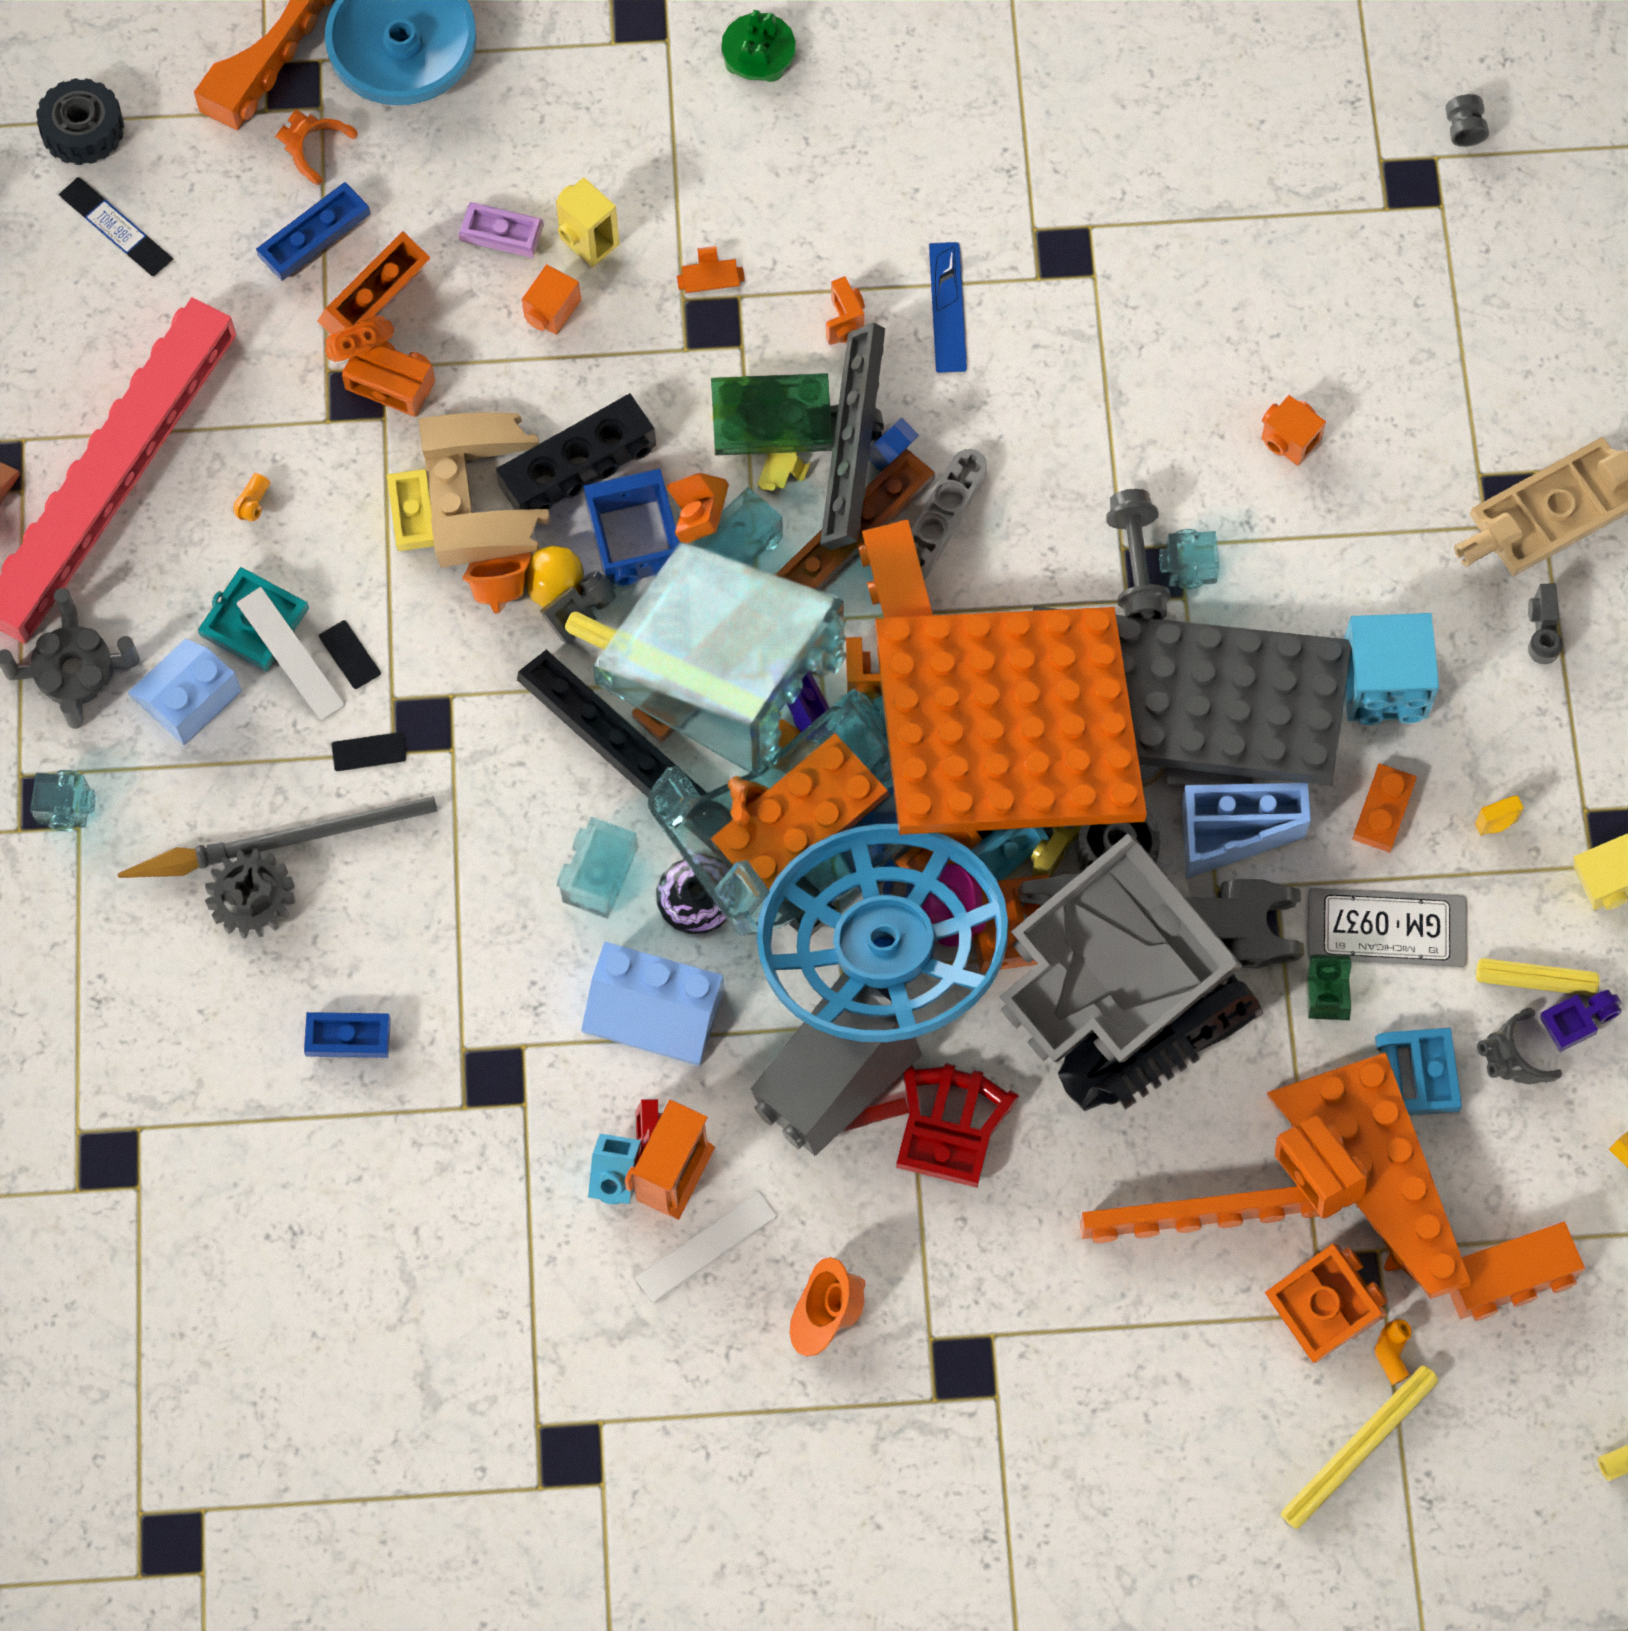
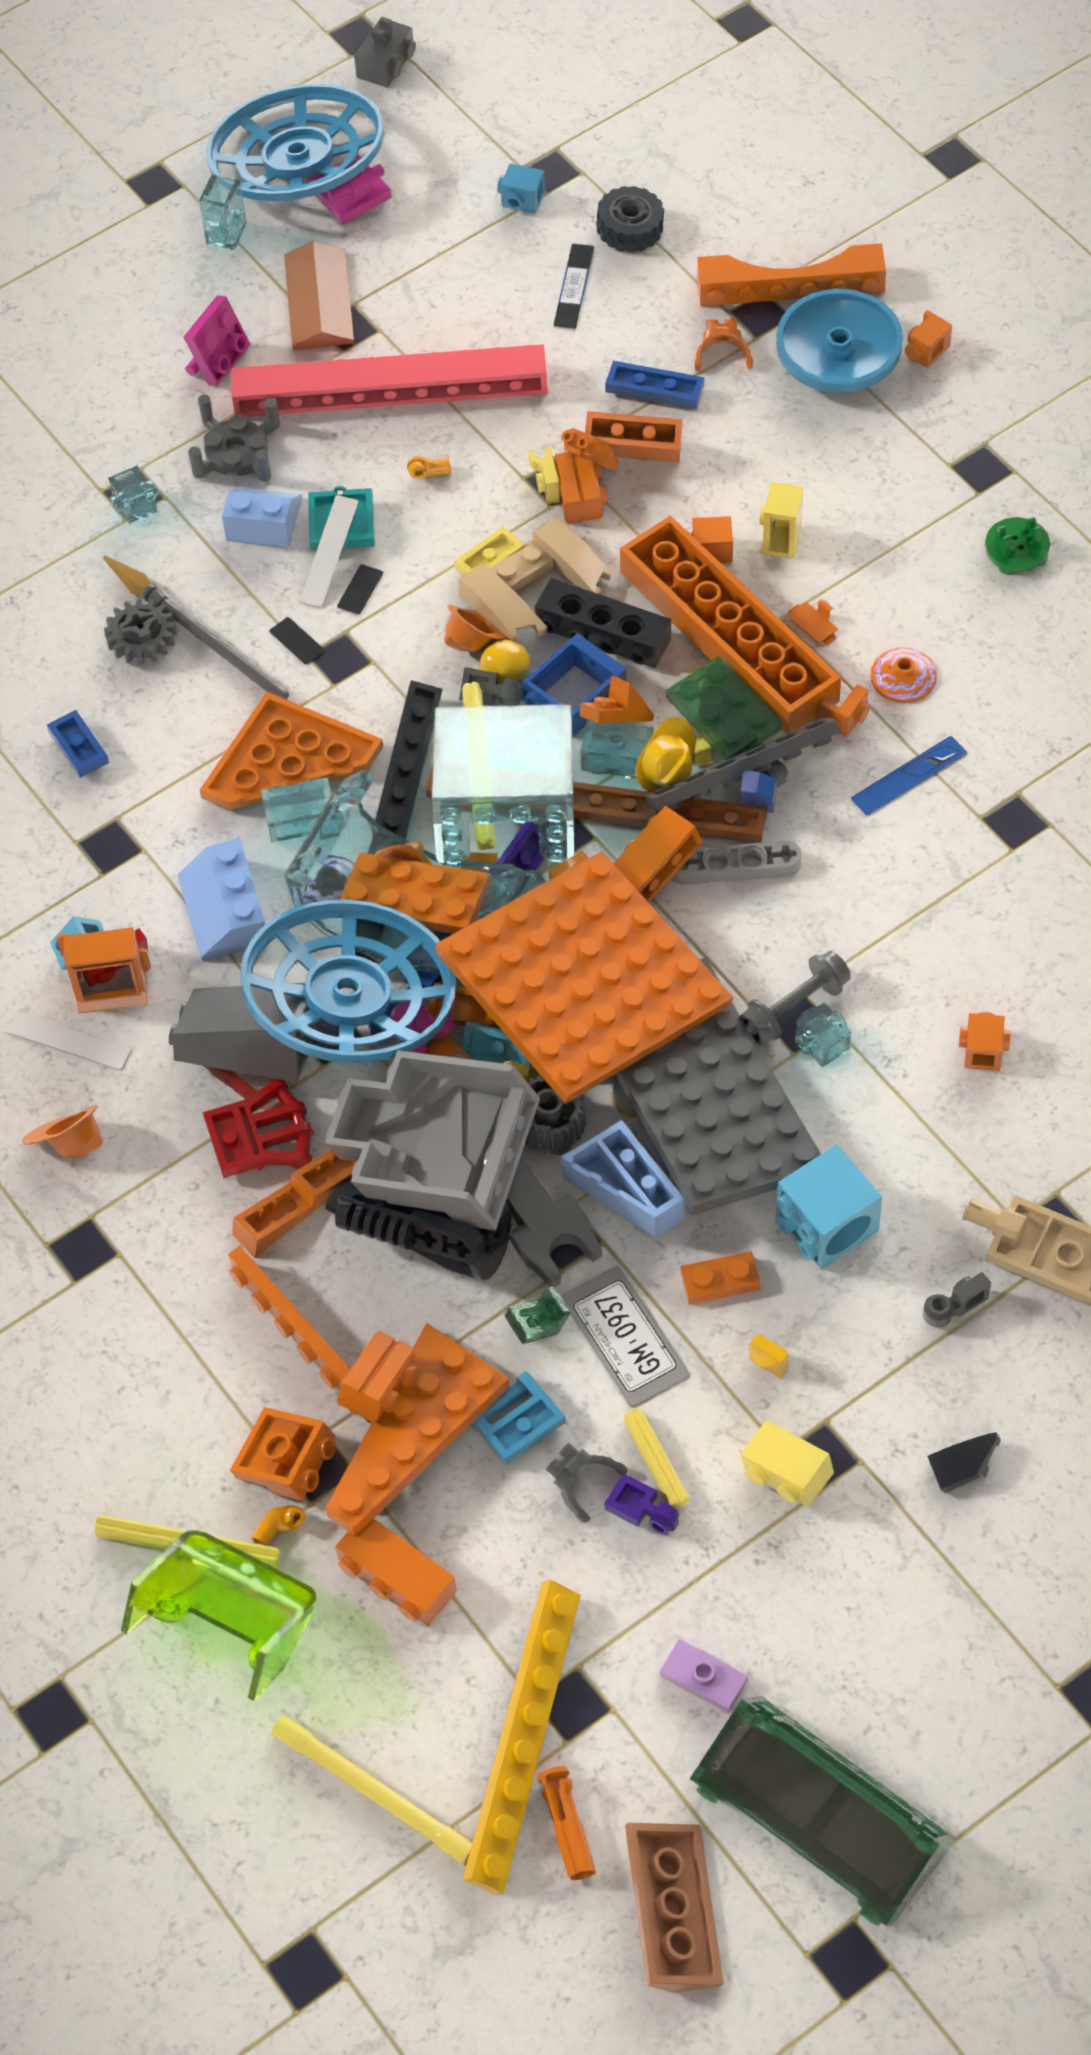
camera: 60 degrees right, 10 degrees down
(355, 396) = (547, 479): none -> light yellow plate
(501, 229) = (743, 483): lavender plate -> none
(512, 840) = (284, 748): none -> orange plate
(667, 345) = (729, 622): none -> orange brick
(794, 495) = (666, 755): none -> yellow piece
(835, 251) = (901, 684): none -> dish
(1047, 1133) = (285, 1208): none -> orange slope
(1458, 1426) = (229, 1591): none -> clear neon green windscreen

